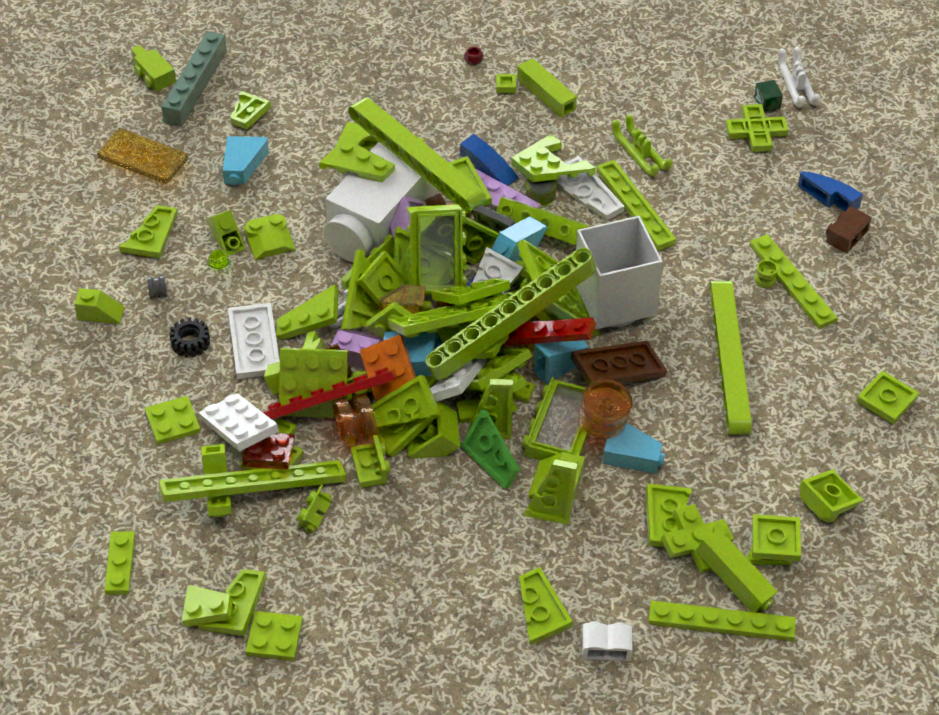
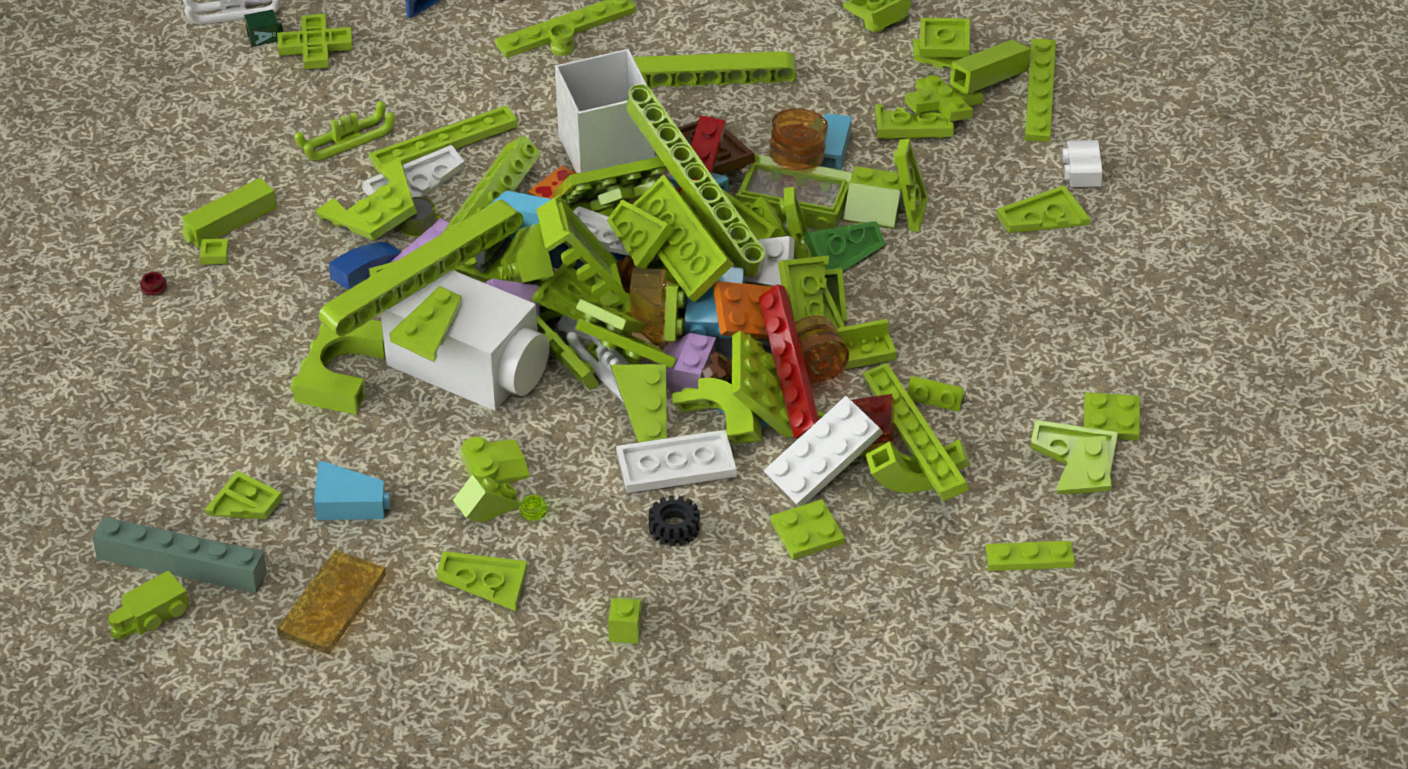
camera: 90 degrees left, 5 degrees down
(156, 286) = (586, 559): dark grey wheel -> none

